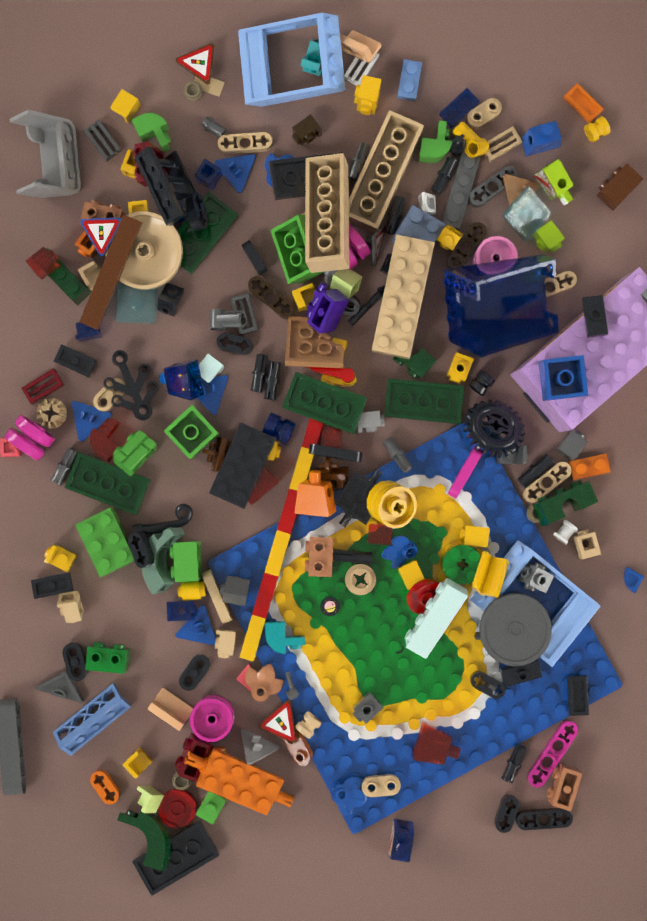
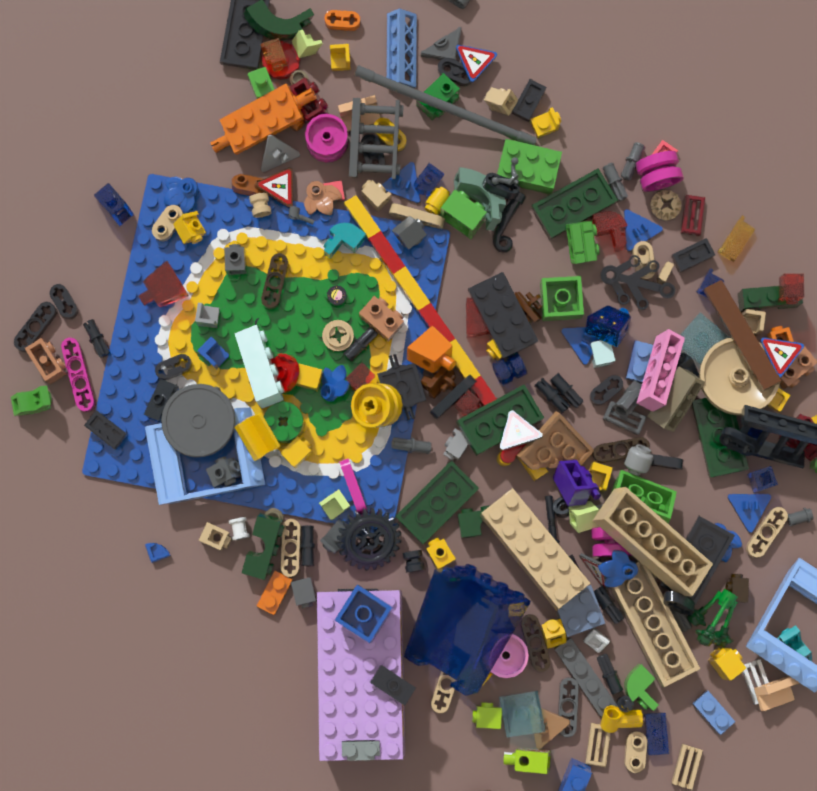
camera: 125 degrees right, 5 degrees down
(35, 338) = (736, 239): none -> clear yellow panel
(36, 466) = (634, 157): none -> dark grey axle
(54, 653) = (475, 60): none -> piece
(107, 371) = (664, 273): none -> tan tile
(136, 722) = (371, 76): none -> dark grey piece
(141, 556) = (495, 180): none -> dark grey piece
(169, 671) = (388, 139): none -> yellow plate
(178, 816) = (274, 54): none -> clear orange brick
(187, 312) = (660, 370): none -> bright pink brick
(191, 336) = (639, 361): none -> medium blue plate
(200, 284) = (681, 396): none -> dark tan brick
(200, 686) = (359, 128): none -> dark grey fence
(269, 276) = (638, 460): none -> light grey head
(324, 380) = (518, 432): none -> piece
(347, 674) = (273, 266): none -> dark brown beam
(352, 115) = (710, 636): none -> plant
(354, 161) = (679, 603): none -> black beam
(367, 223) = (616, 568): none -> blue plate
(372, 764) = (189, 228): none -> yellow brick
(428, 692) = (207, 316): none -> light grey panel
(447, 68) = (694, 768): none -> tan tile
(452, 663) = (213, 353): none -> blue panel
(489, 474) = (334, 504): none -> yellowish green panel
(603, 771) = (31, 401): none -> bright green brick

